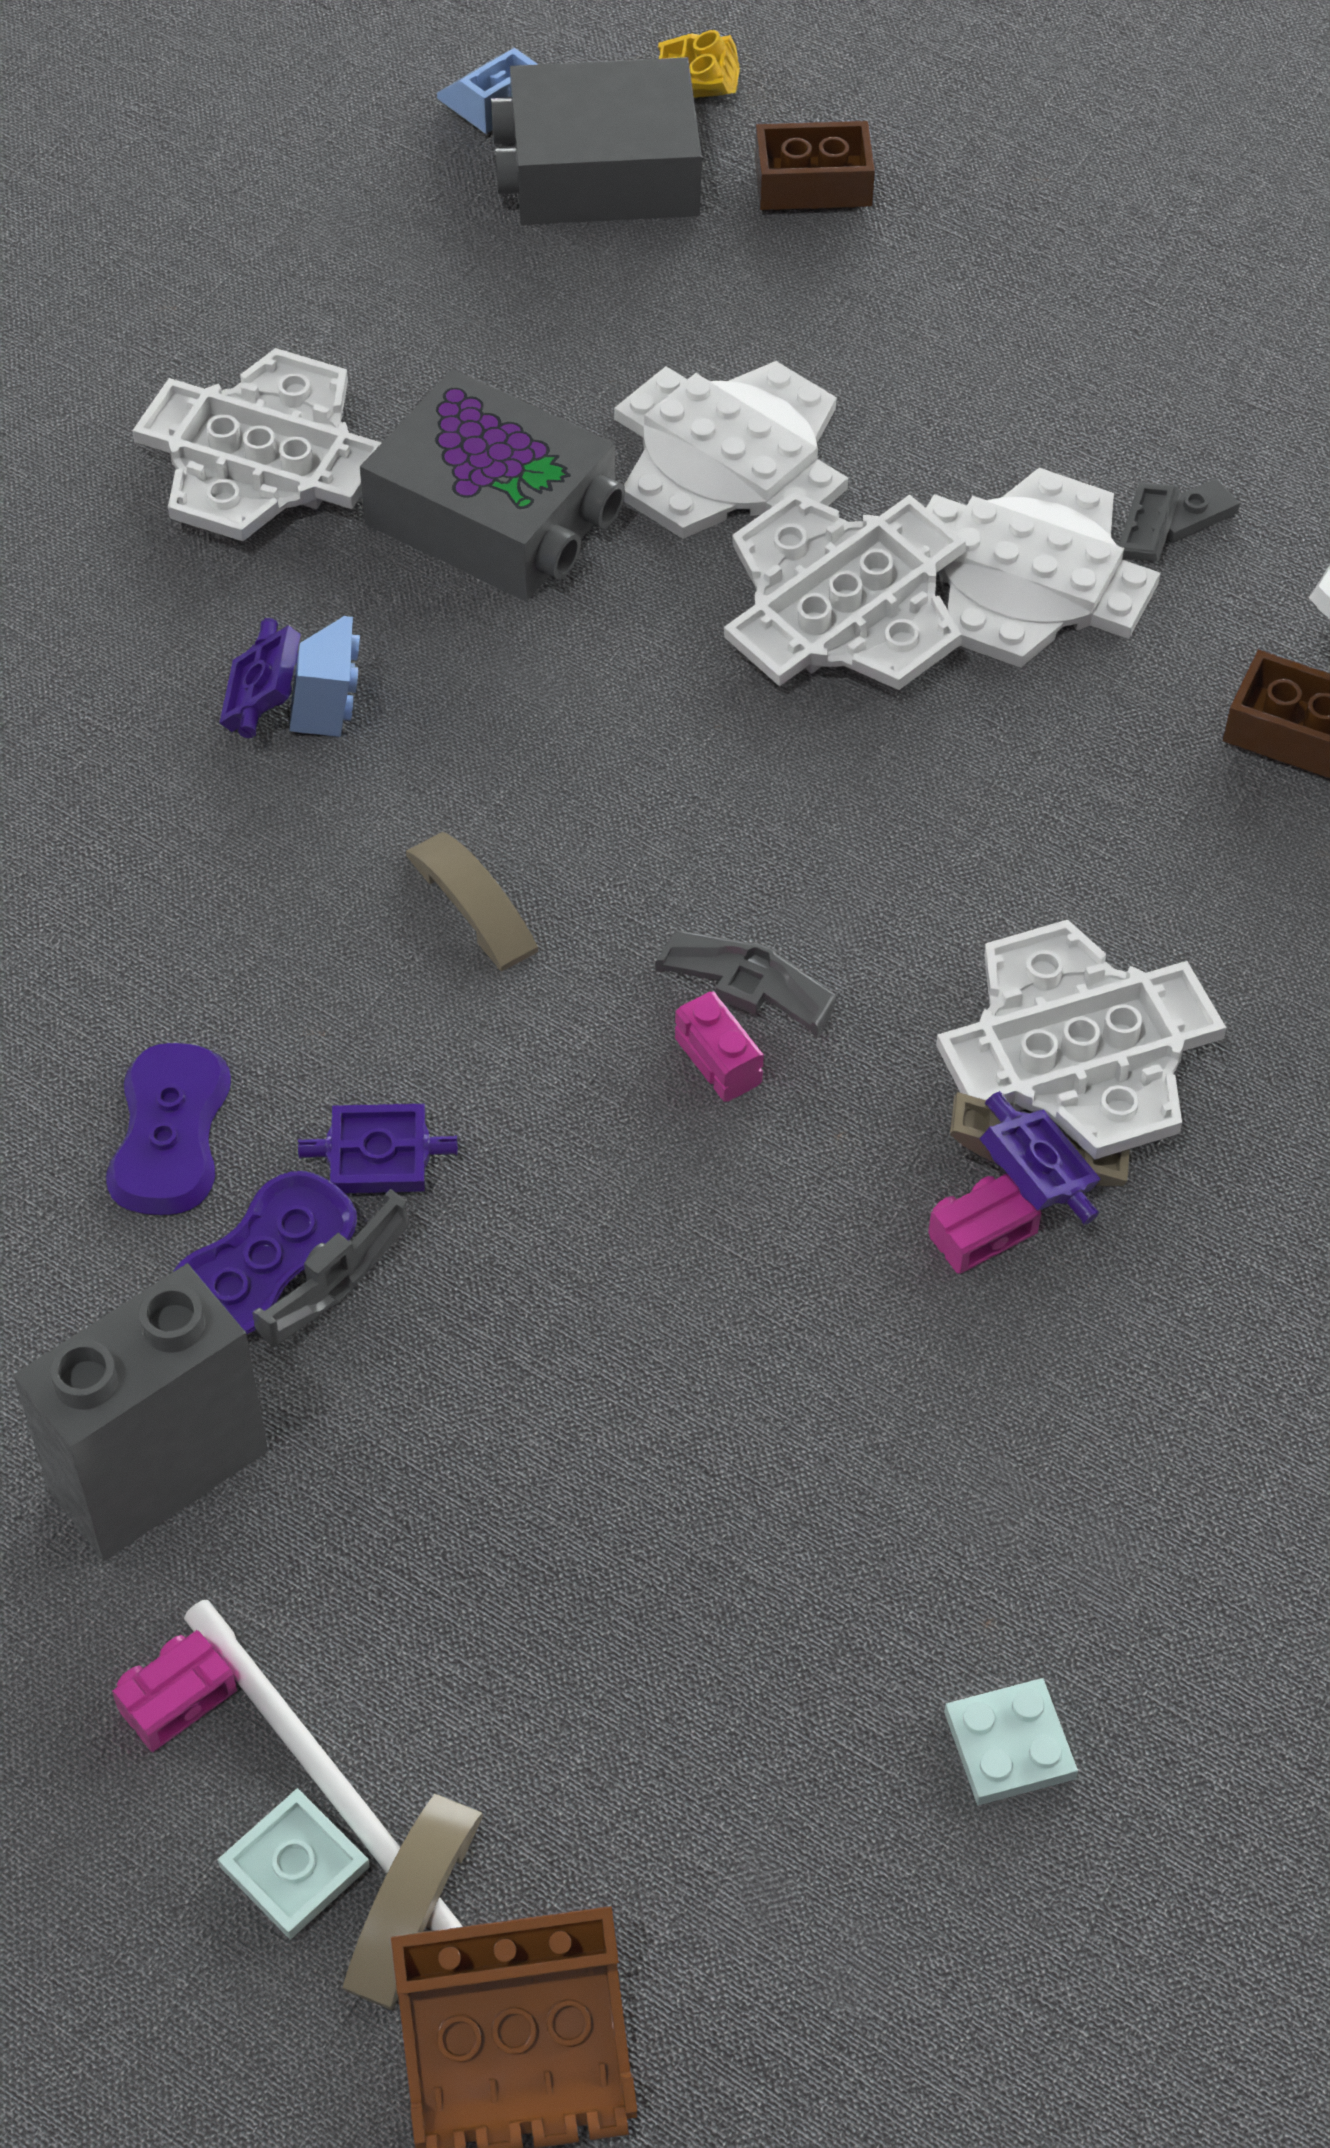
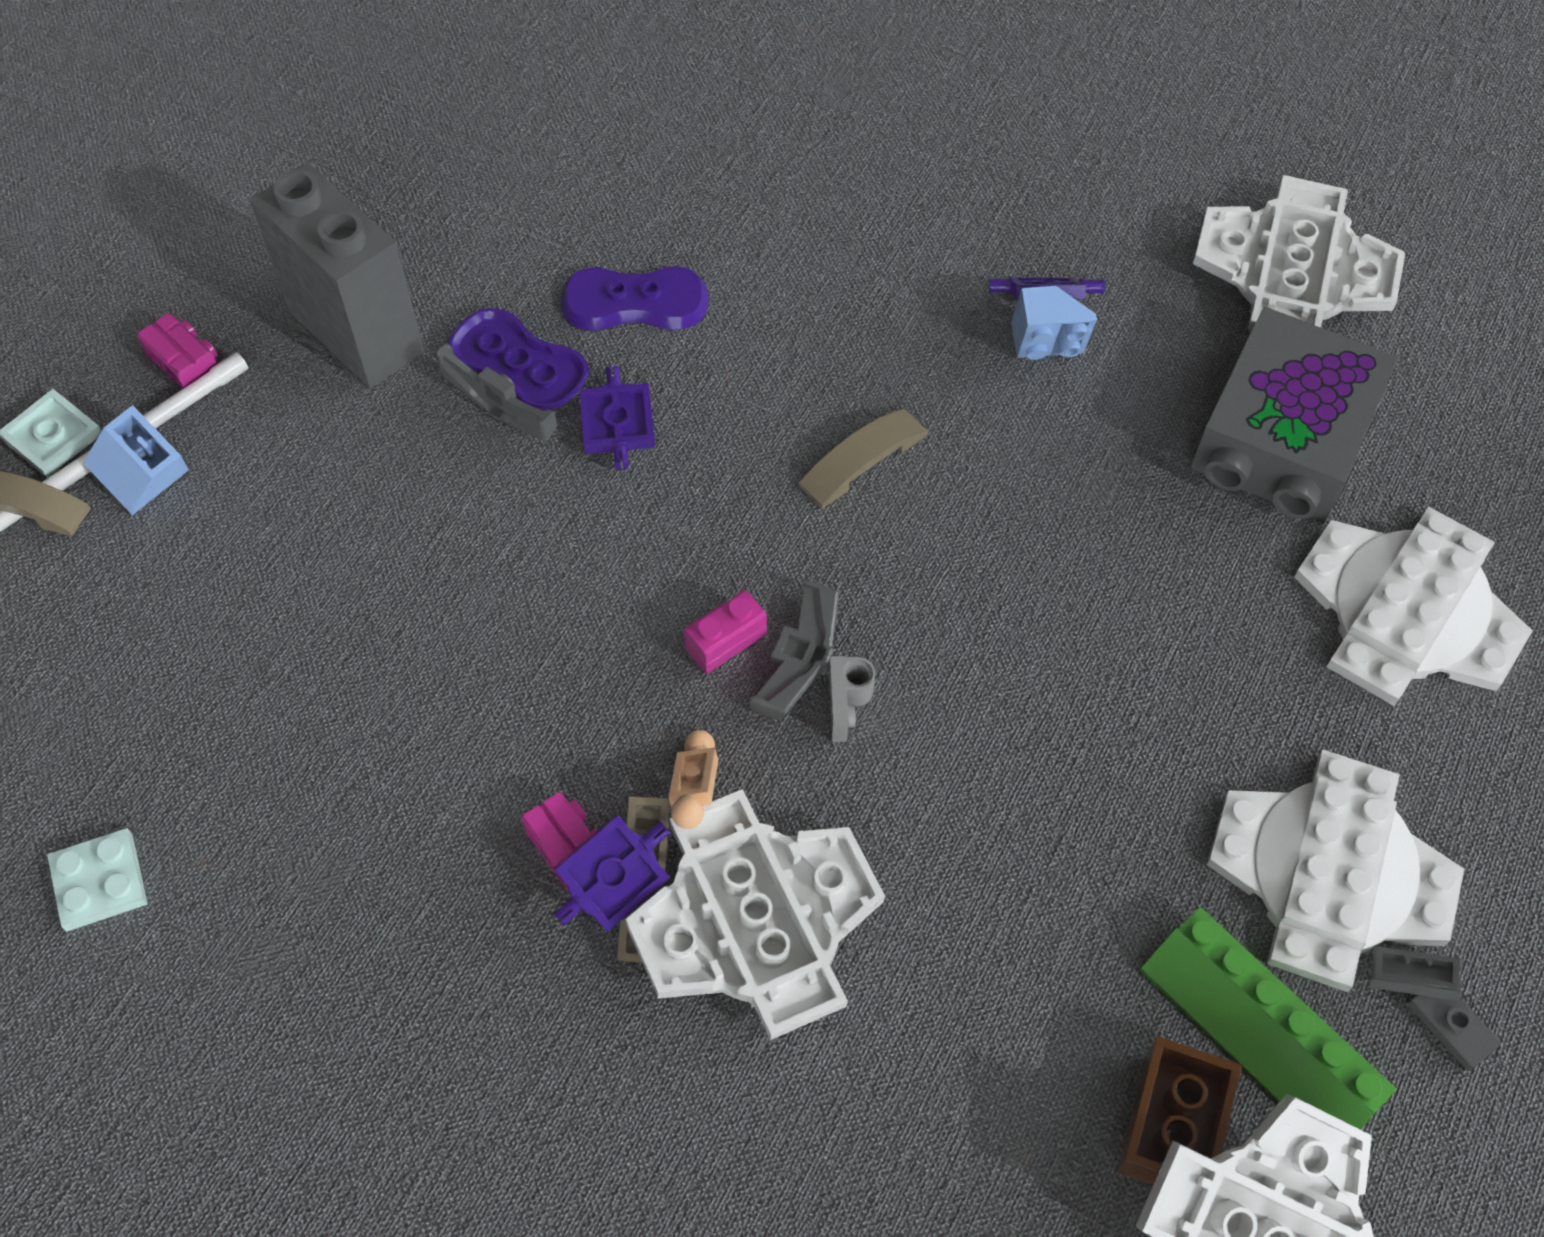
camera: 85 degrees right, 5 degrees up
(377, 1723) = (134, 460): none -> light blue slope
(810, 946) = (847, 696): none -> light grey plate
(845, 591) = (1243, 697): white plate -> none
(921, 1079) = (693, 779): none -> light nougat plate
(1202, 644) = (1263, 1023): none -> bright green slope

